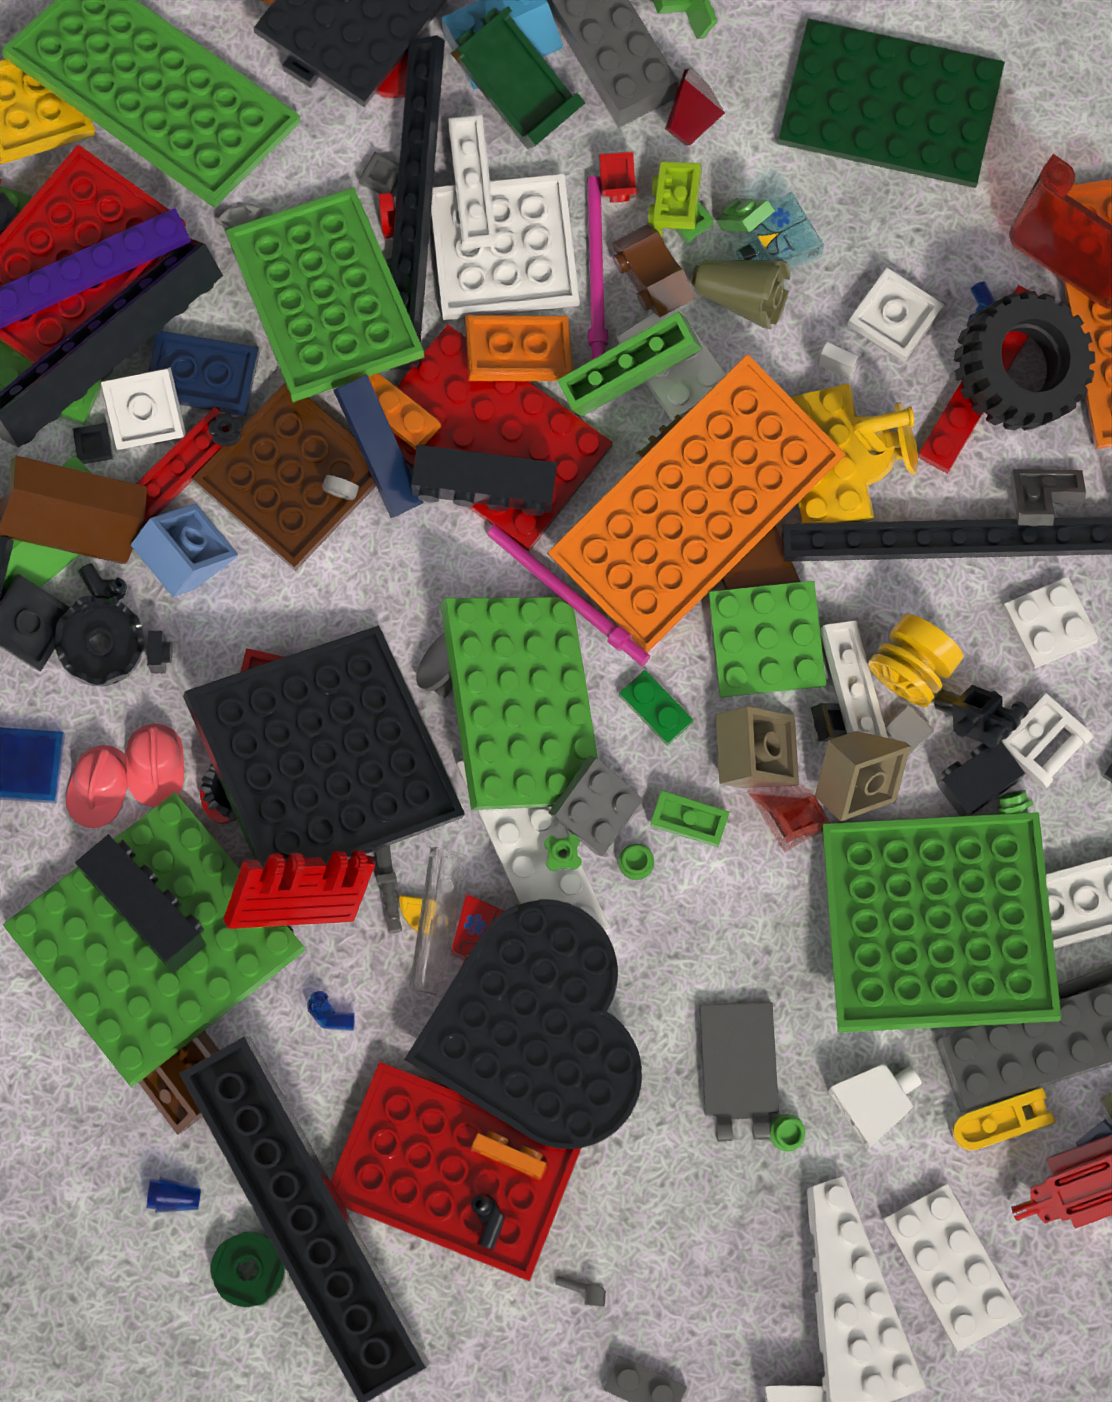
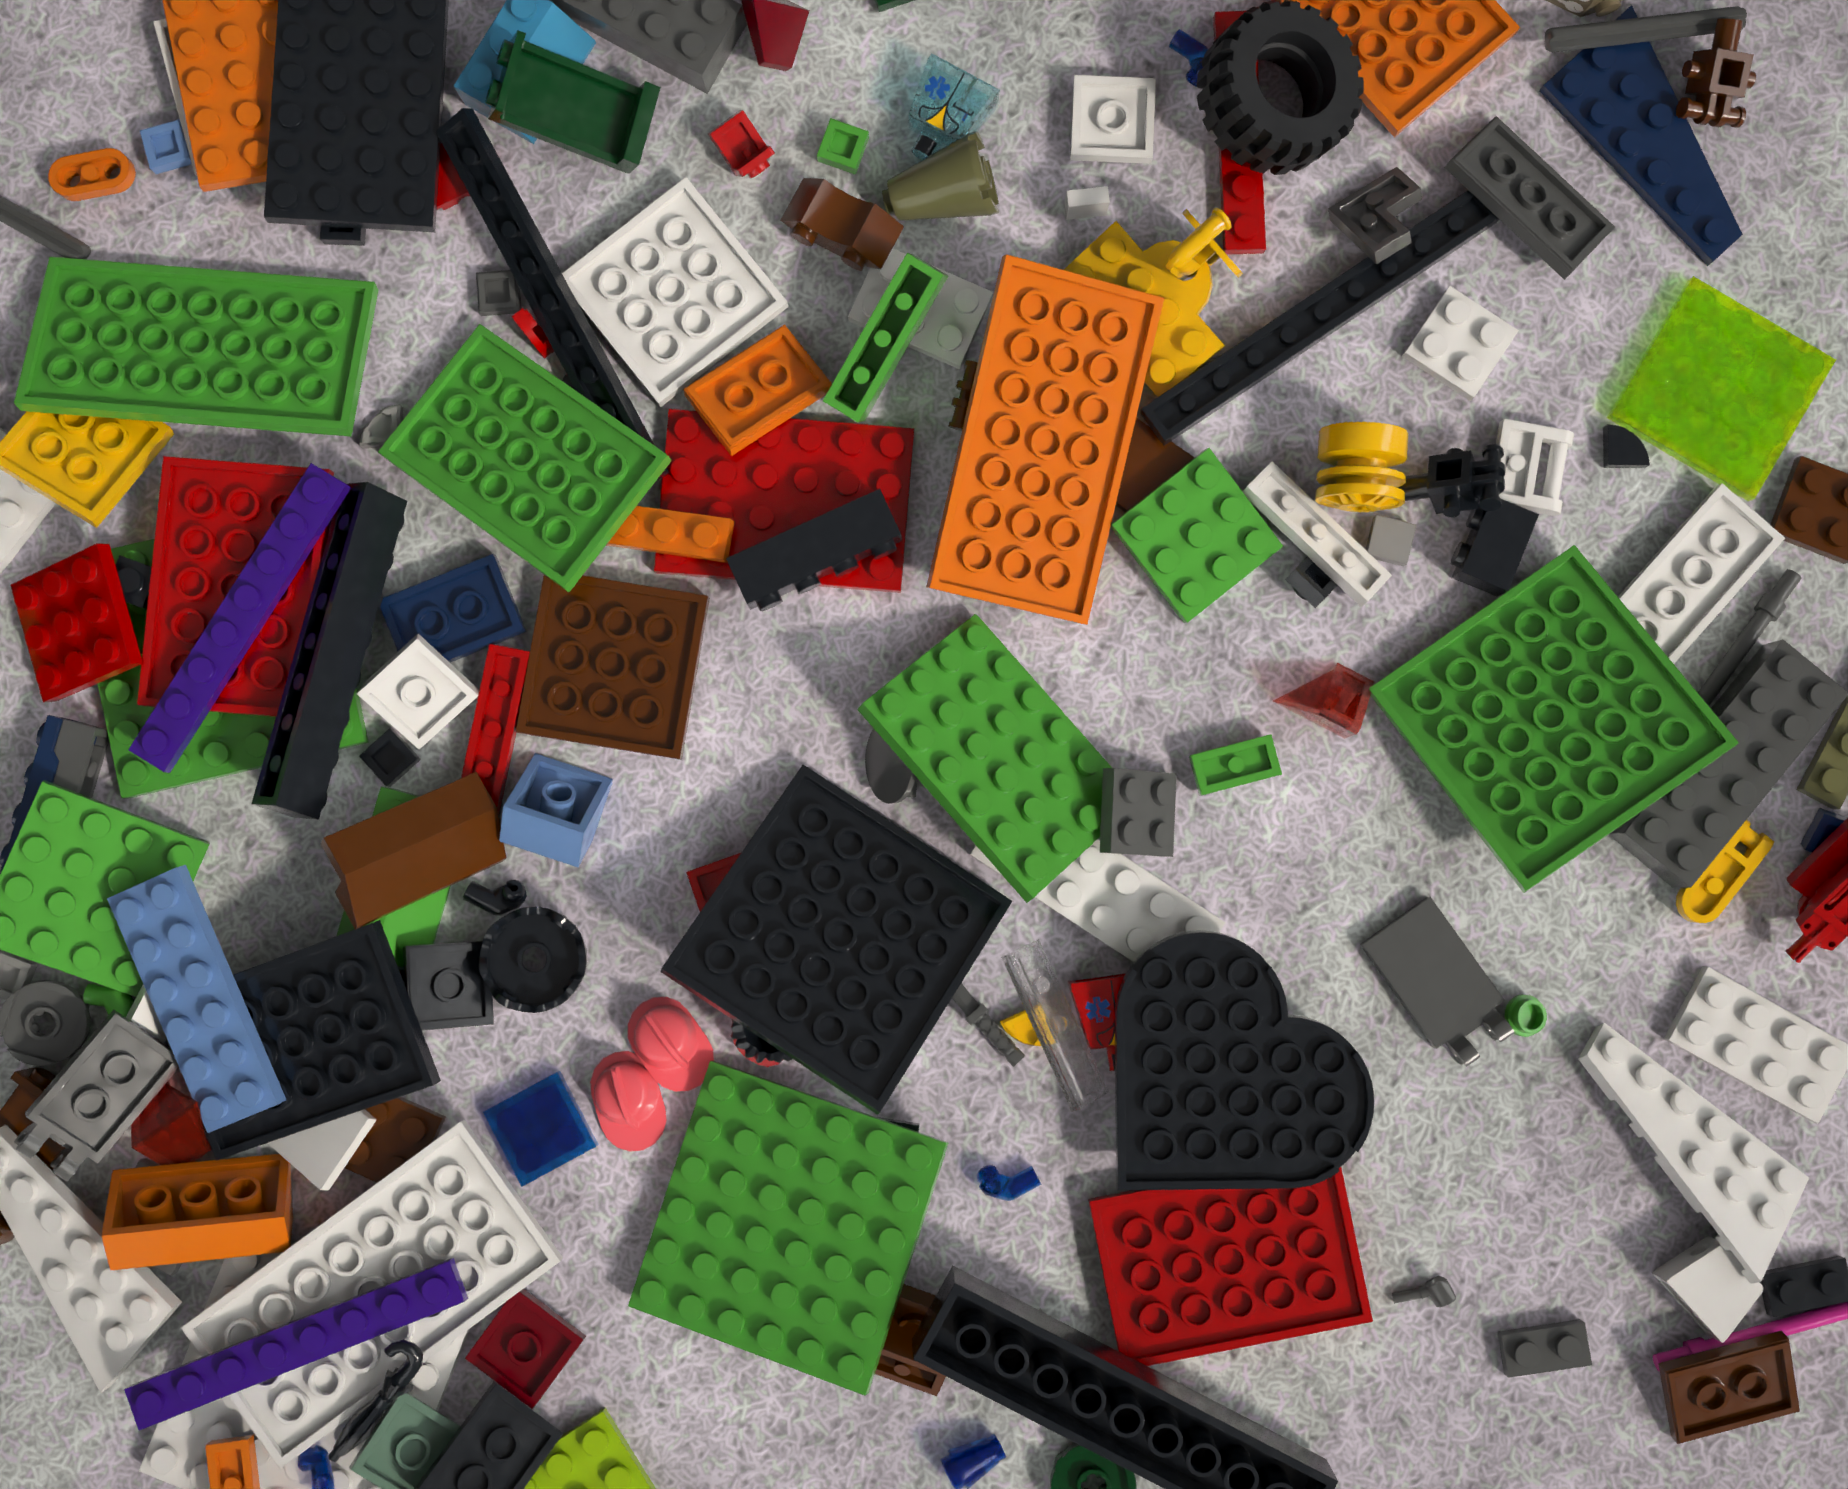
camera: 30 degrees left, 10 degrees up
(141, 903) = (756, 1205): black brick -> none
(158, 652) = (600, 931): black plate -> none
(227, 438) = (528, 664): black plate -> none
(299, 890) = (911, 1097): red hinge -> none
(340, 487) = (674, 650): light grey tile -> none
(377, 445) = (683, 581): dark blue tile -> none
(472, 182) = (598, 243): white tile -> none
(490, 1217) = (1300, 1287): black arm -> none
(524, 1160) = (1299, 1213): orange plate -> none
(555, 860) = (1125, 881): bright green plate -> none
(598, 333) = (827, 325): dark pink bar -> none
(617, 636) = (1051, 627): dark pink bar -> none
(636, 862) = (1209, 840): bright green plate -> none
(656, 707) = (1129, 673): green plate -> none
(676, 196) = (817, 129): lime bracket -> none
(744, 214) = (899, 107): bright green plate -> none
(756, 748) = (1256, 654): dark tan slope -> none
(861, 773) = (1379, 617): dark tan slope -> none
(875, 1101) = (1592, 931): white torso -> none
(1014, 802) = (1542, 549): bright green plate -> none

